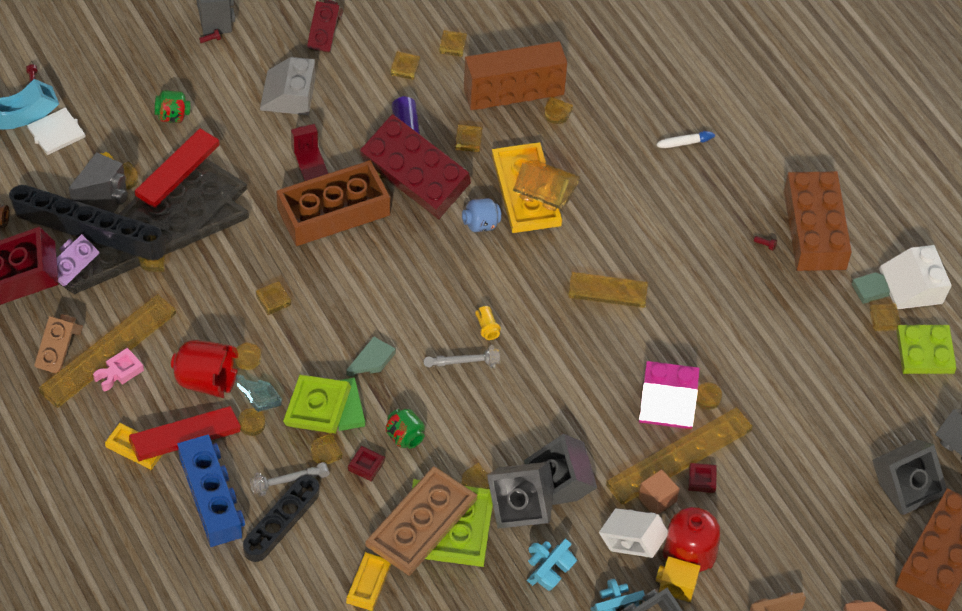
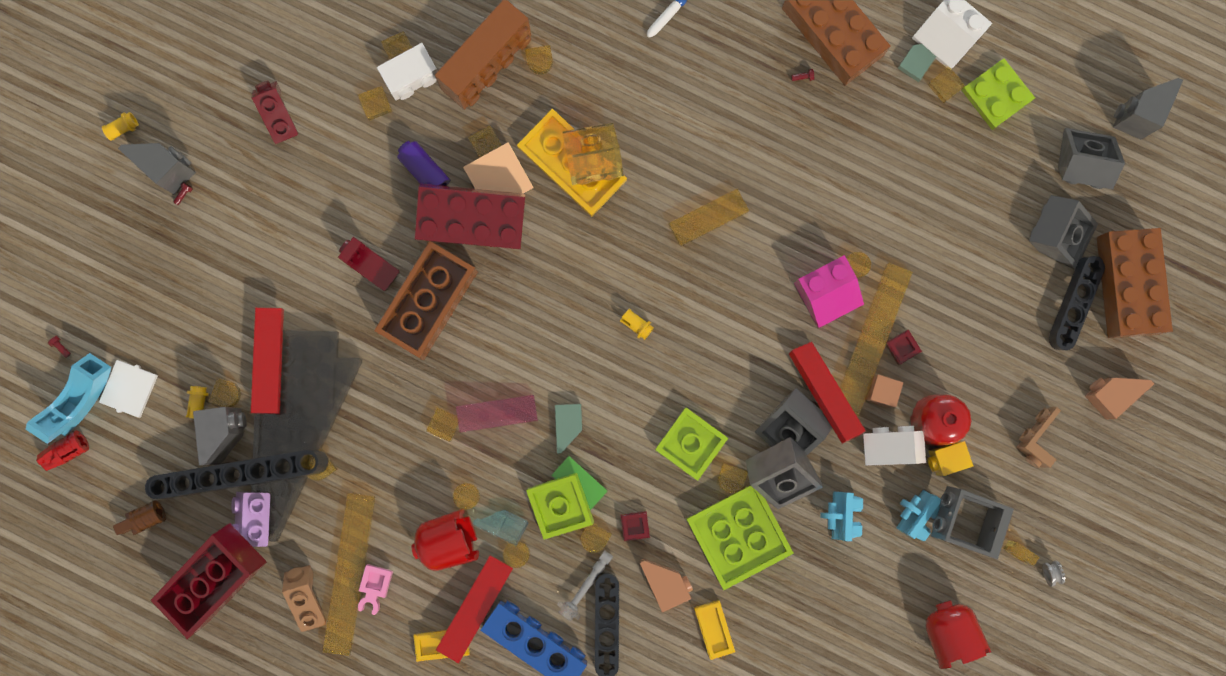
camera: 35 degrees left, 30 degrees up
(171, 106) = (210, 297): green head -> none
(289, 87) = (294, 201): light grey slope -> none
(321, 314) = (496, 413): none -> clear pink tile
(356, 516) = (666, 584): none -> nougat slope
(405, 428) = (645, 476): green head -> none
(421, 520) = (722, 555): medium nougat tile -> none
(446, 57) = (408, 72): none -> white brick
(462, 431) = (691, 444): none -> lime plate
(468, 154) = (499, 172): none -> light nougat tile
(481, 215) = (556, 220): medium blue head -> none
(490, 356) = (663, 356): light grey piece -> none
(607, 461) = (827, 392): none -> red tile
(882, 533) = (1072, 300): none -> black beam

